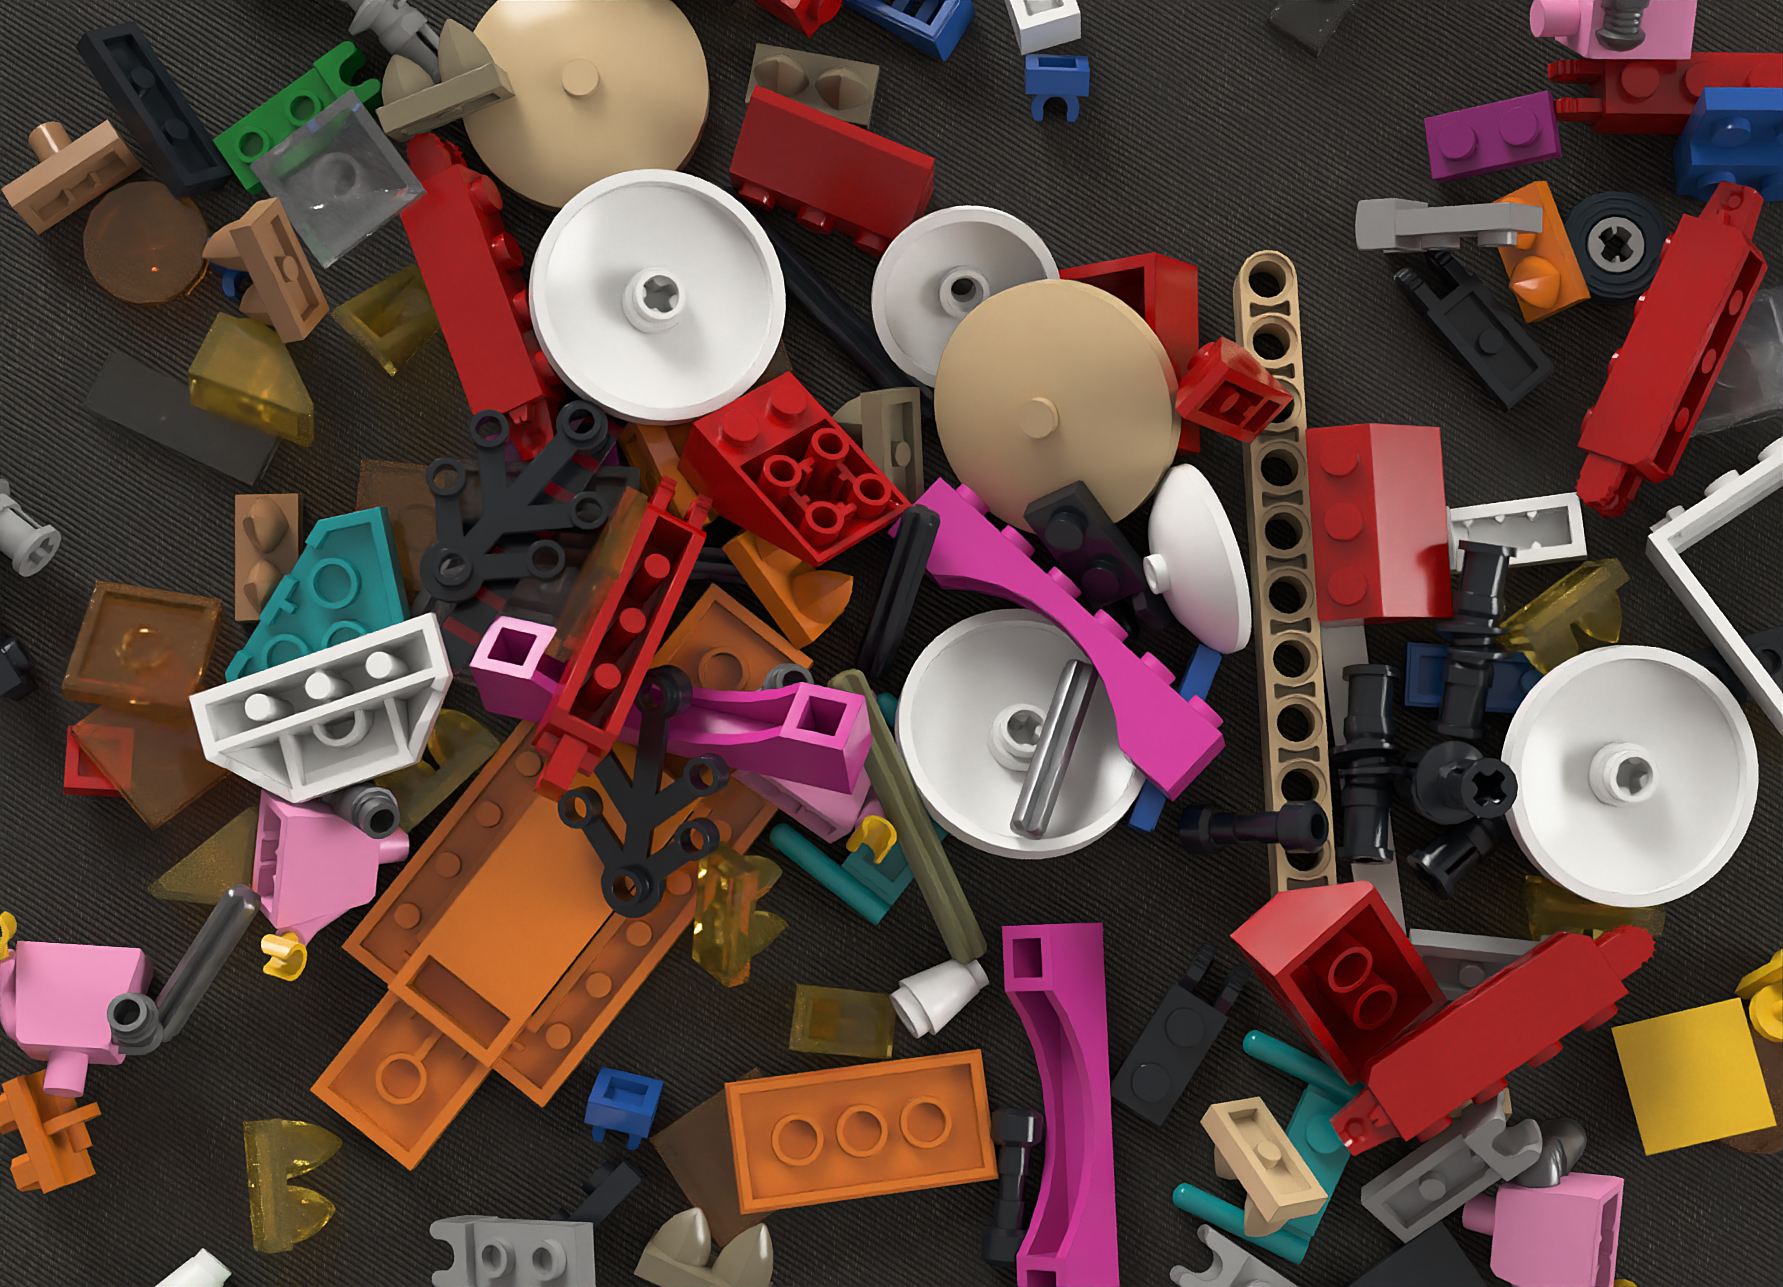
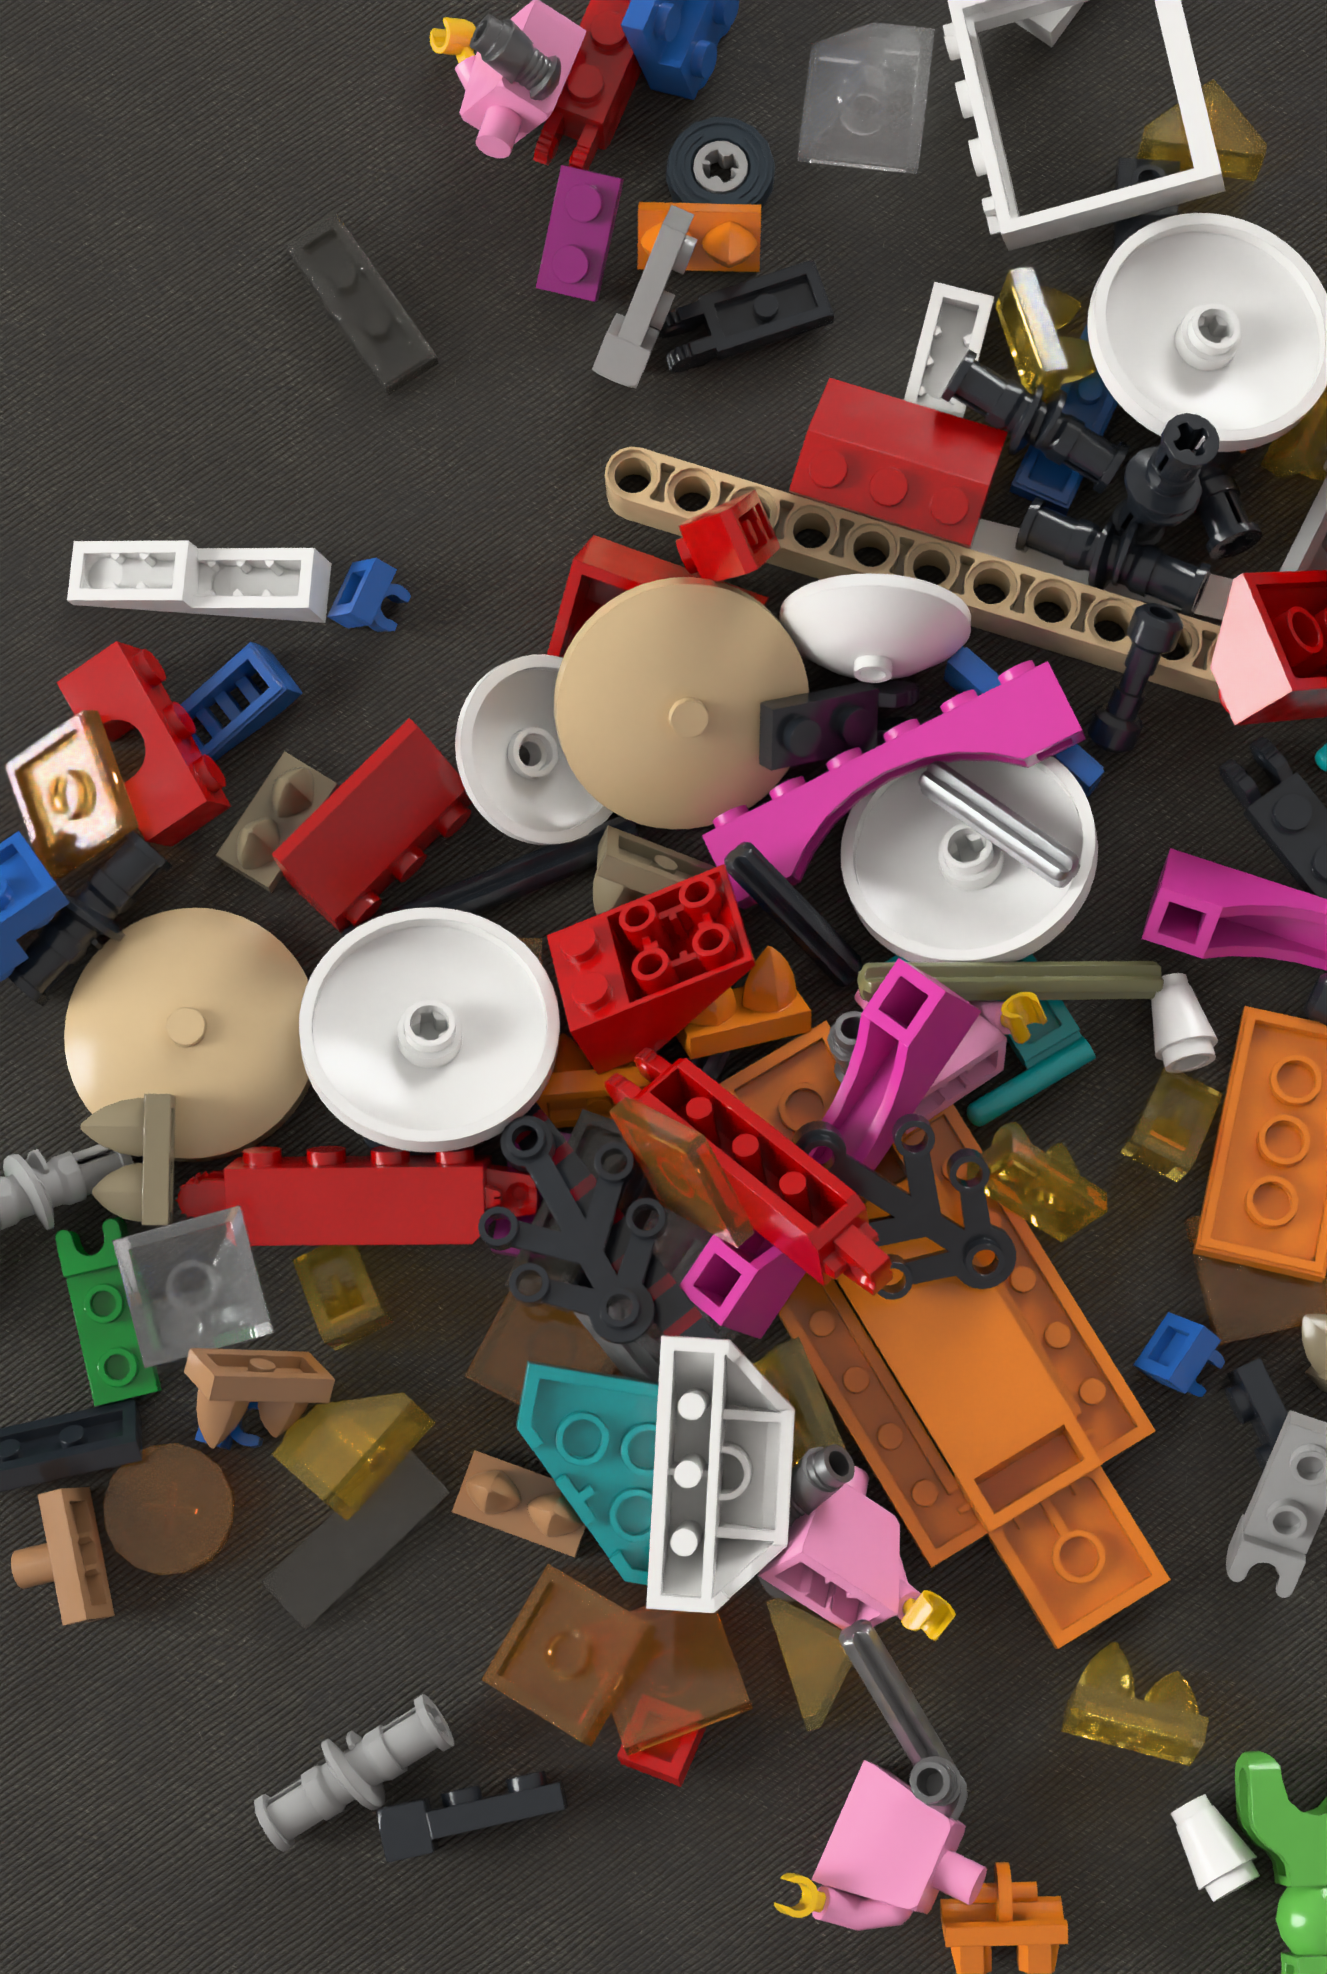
camera: 65 degrees left, 5 degrees down
(1672, 351) = (839, 151): red hinge -> none

